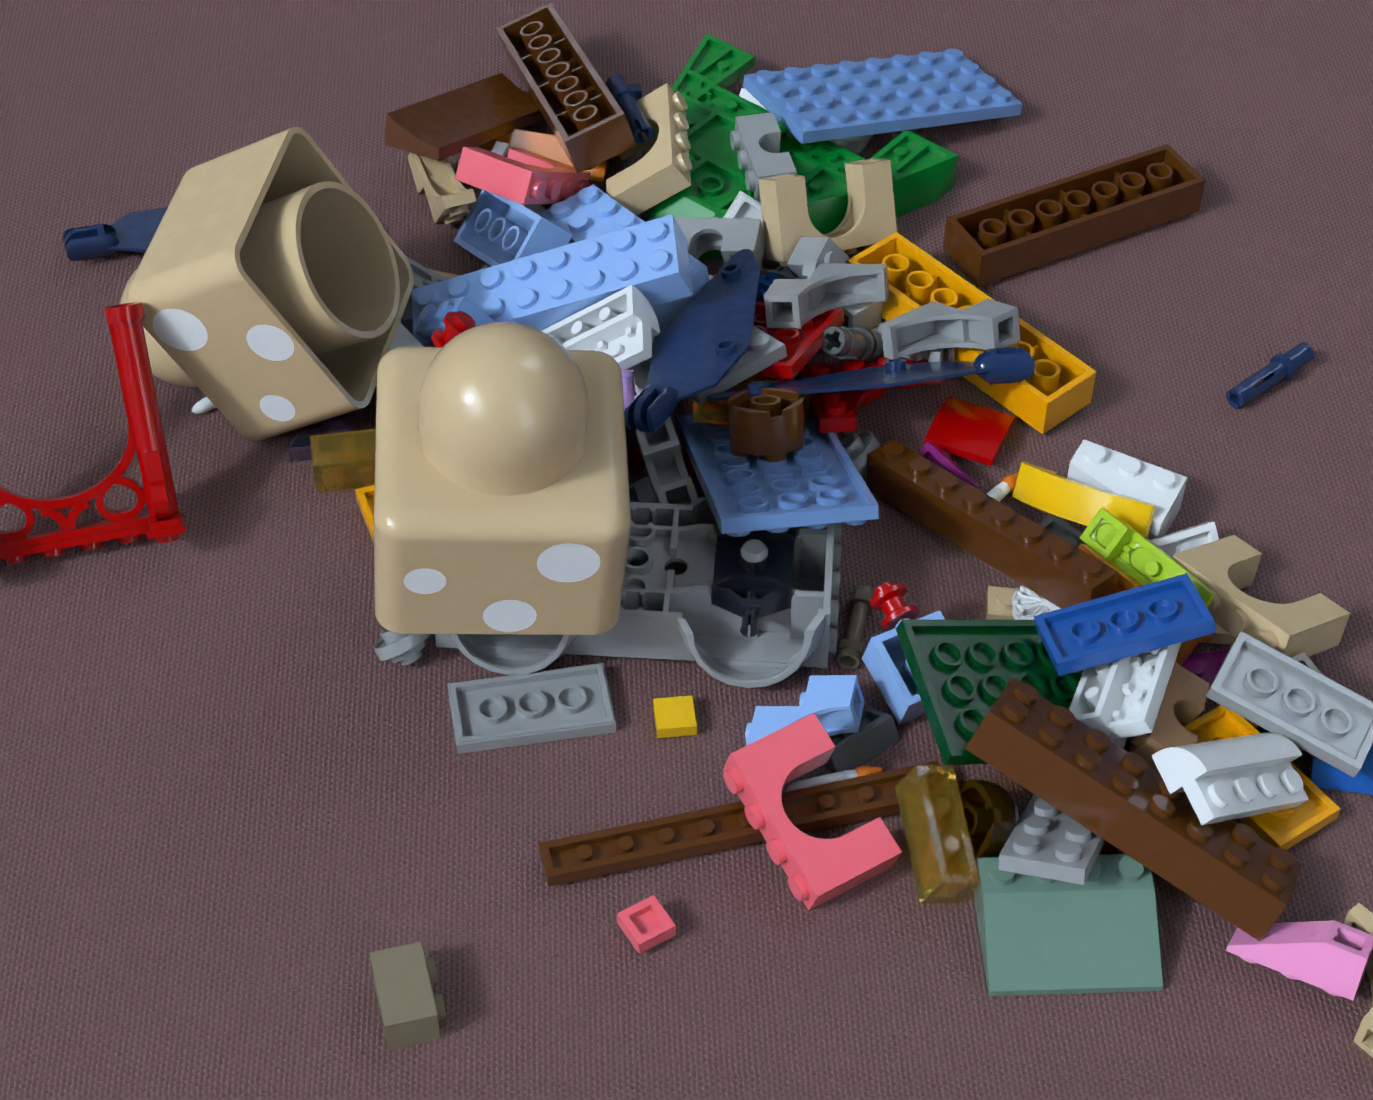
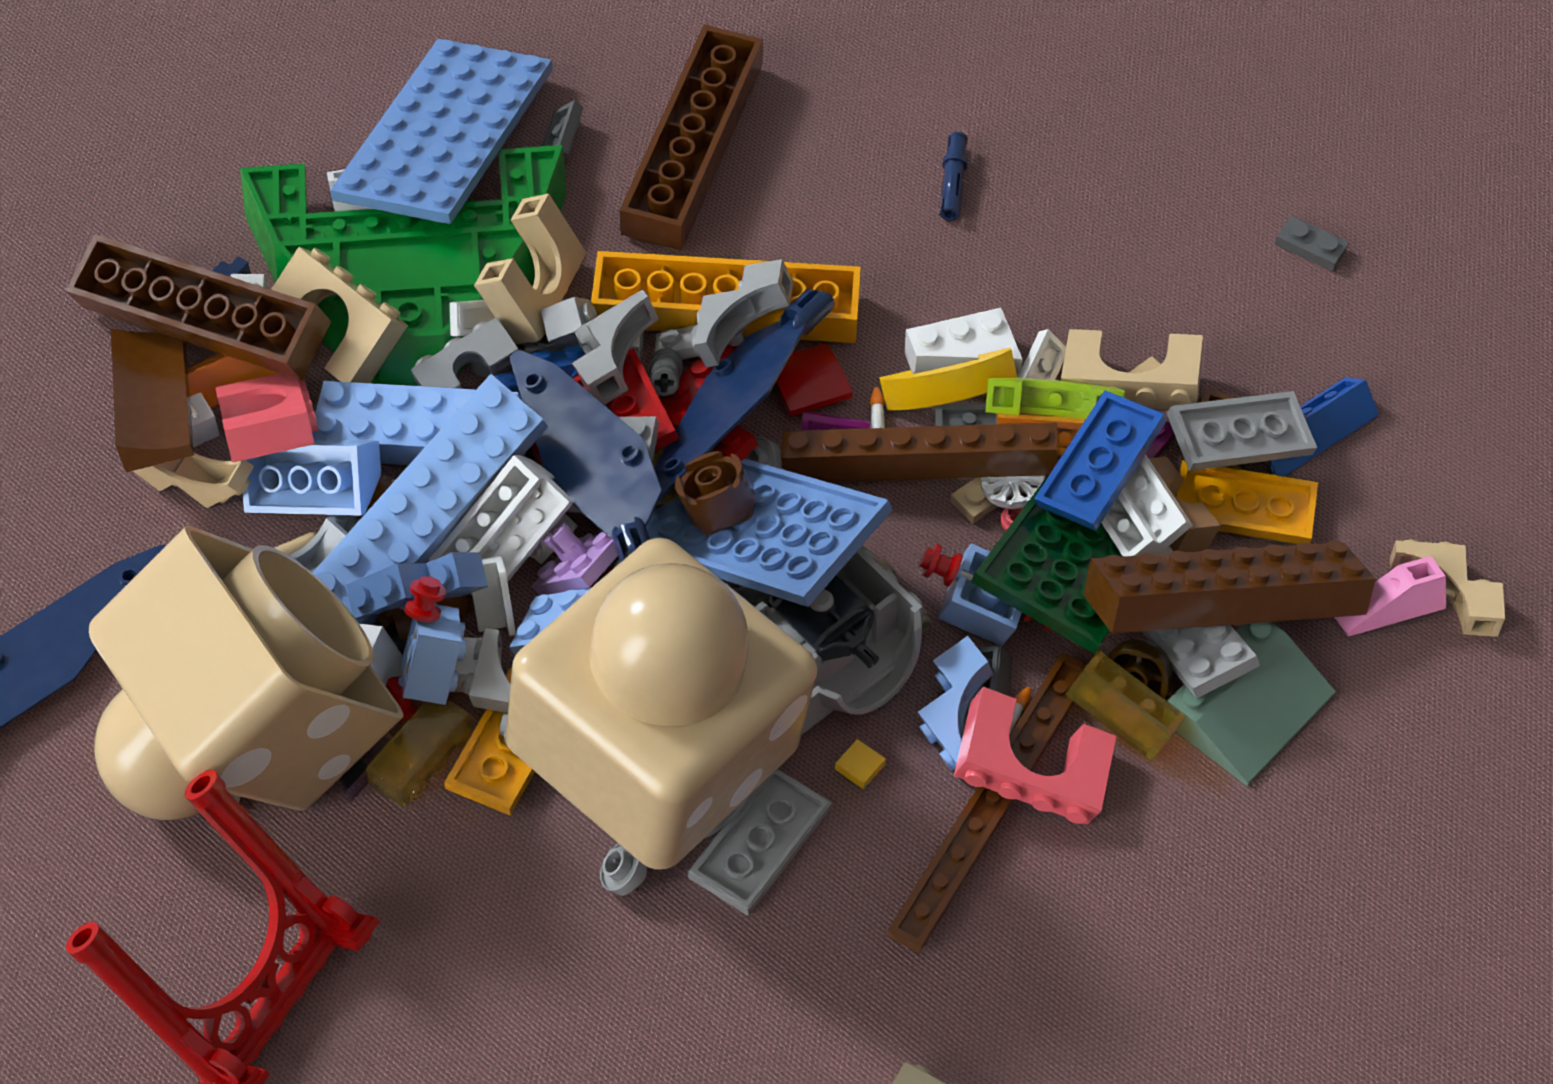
camera: 45 degrees left, 10 degrees up
(628, 103) = (277, 283): dark blue pin -> none
(646, 924) = (1012, 923): coral plate -> none
(758, 148) = (452, 272): light grey arch -> none
(987, 154) = (563, 126): none -> dark grey plate
(1234, 776) = (1262, 513): white brick -> none

